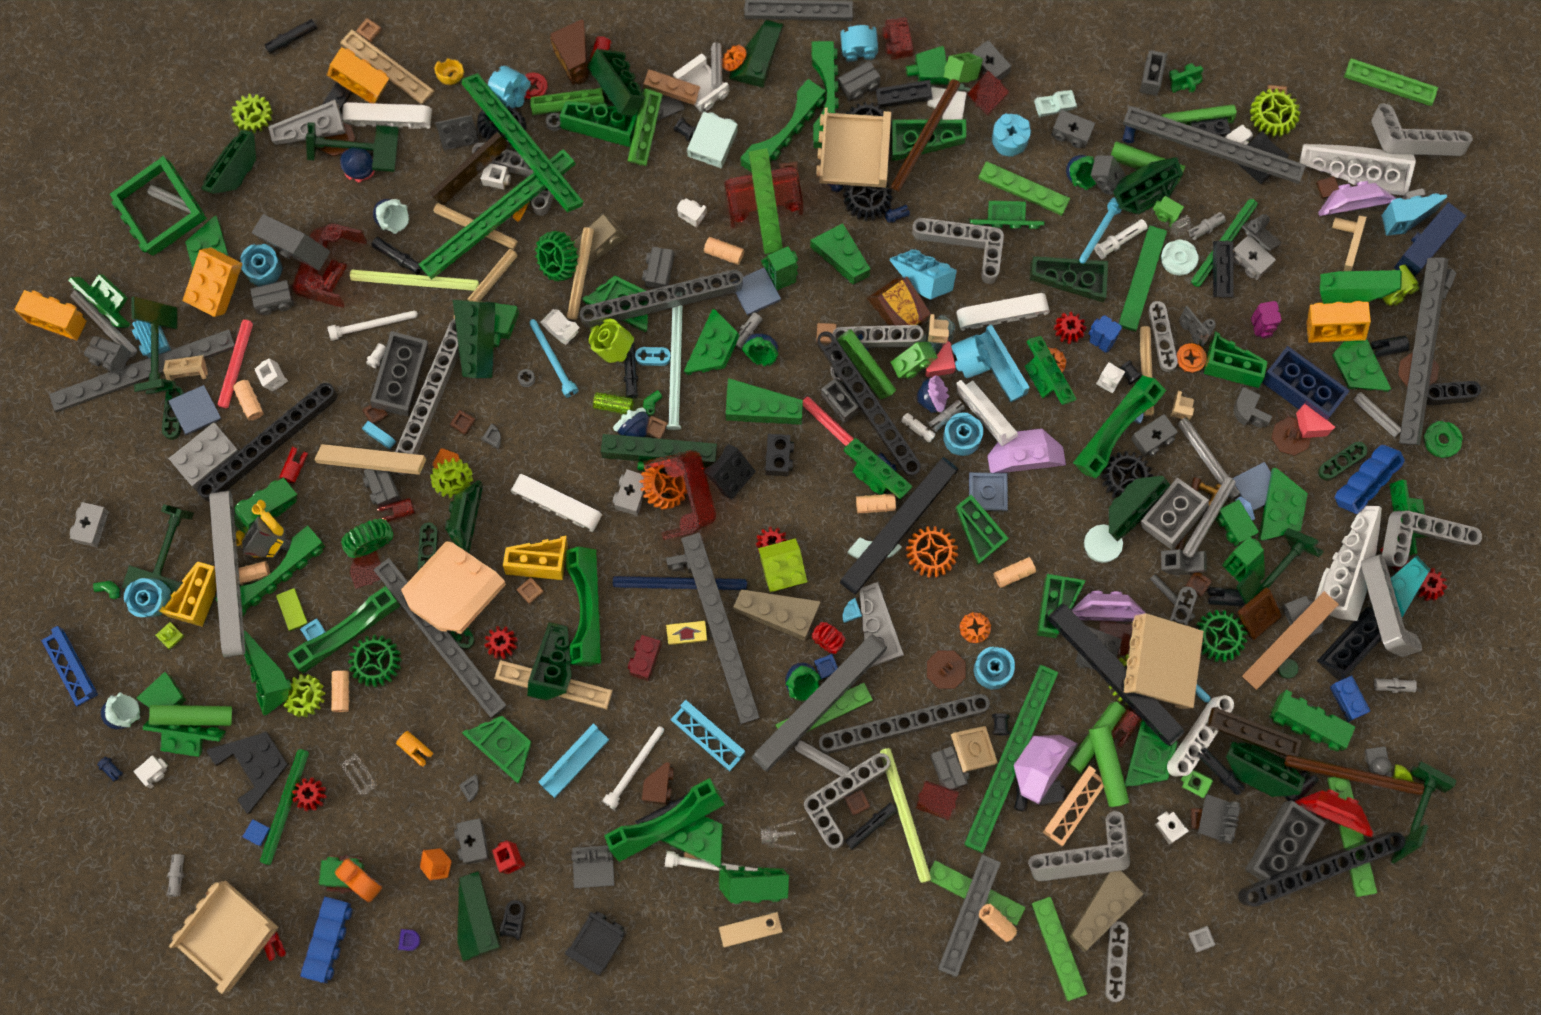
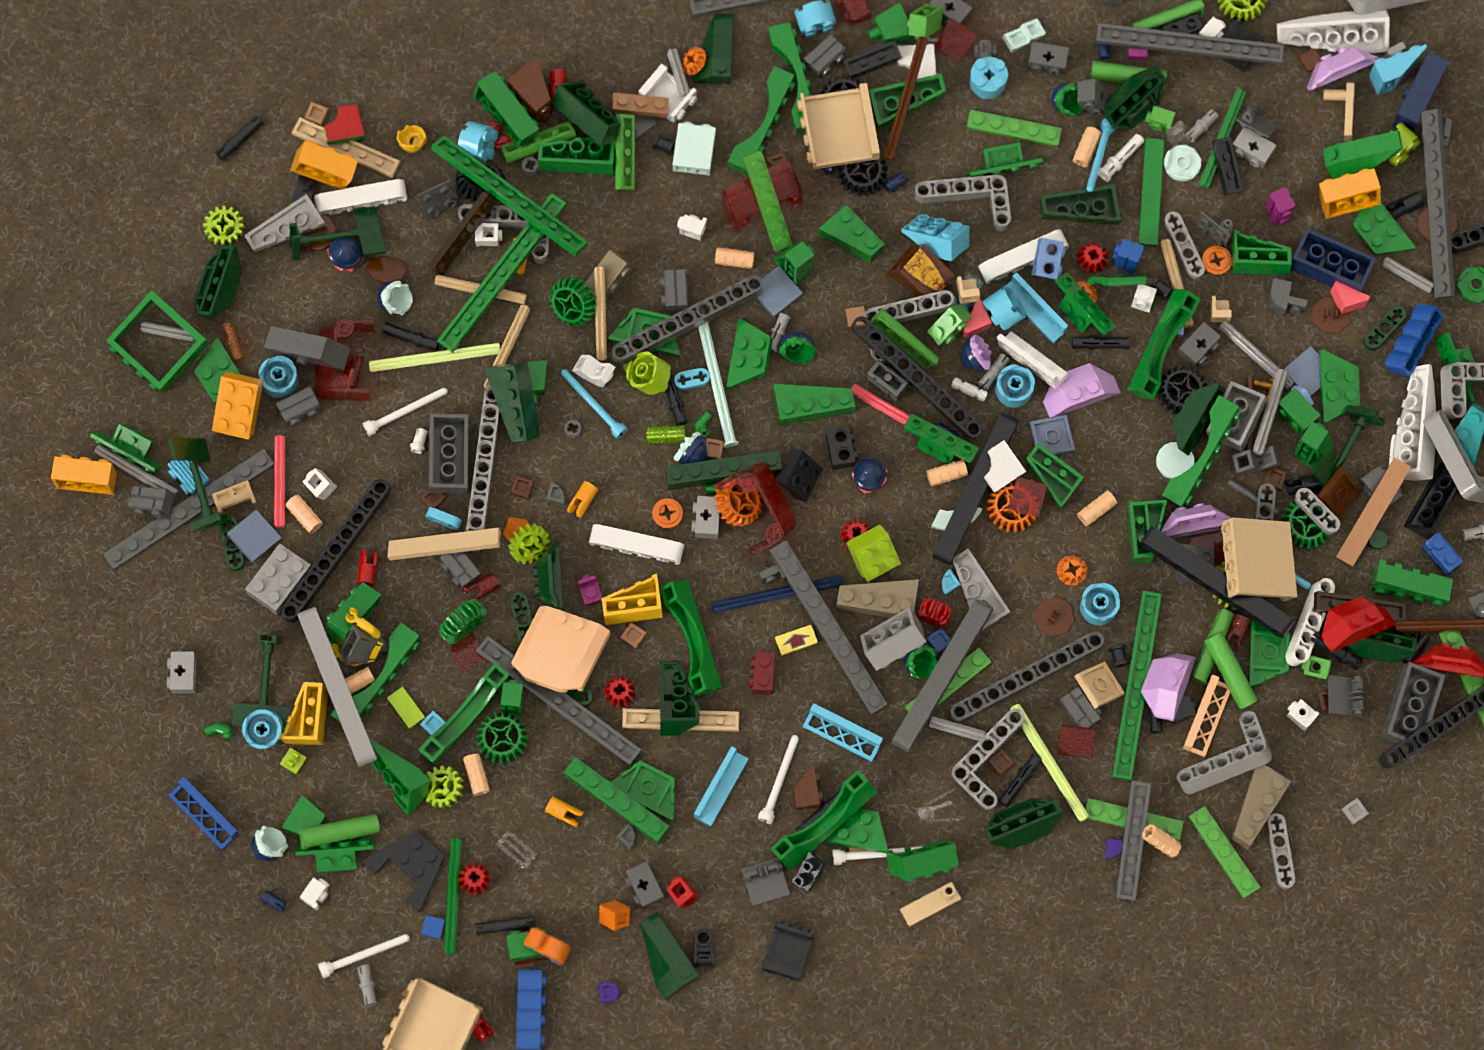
camera: 15 degrees left, 0 degrees up
(141, 849) = (327, 968): none -> white piece
(229, 222) = (233, 341): none -> clear orange pin
(335, 849) = (505, 925): none -> black pin
(391, 47) = (345, 127): none -> red tile
(391, 187) = (386, 269): none -> reddish brown piece
(394, 624) = (512, 697): none -> green brick
(468, 750) = (617, 800): none -> green arch
(499, 536) = (589, 589): none -> magenta bracket
(516, 447) = (585, 496): none -> light orange hinge
(543, 62) = (506, 109): none -> green wedge
(588, 474) = (672, 506): none -> orange gear
(637, 868) = (809, 872): none -> black hips
(779, 655) = (893, 639): none -> light grey brick
(799, 487) = (869, 474): none -> dark blue hair
(862, 870) = (1023, 823): none -> dark green wedge
(932, 510) = (1003, 468): none -> white tile
(948, 545) = (1027, 497): none -> clear red piece
(948, 917) = (1113, 848): none -> dark purple tile
(1014, 106) = (985, 49): none -> dark grey gear
(1020, 315) = (1043, 257): none -> medium blue brick
(1079, 416) = (1112, 342): none -> black pin
(1090, 221) = (1087, 146): none -> light nougat axle
(1090, 354) = (1118, 279): none -> green tile
(1160, 144) = (1137, 54): none -> magenta tile
(1160, 510) = (1222, 417): none -> green arch
(1245, 636) = (1317, 502): none -> light grey beam
(1245, 747) = (1354, 622): none -> red wedge

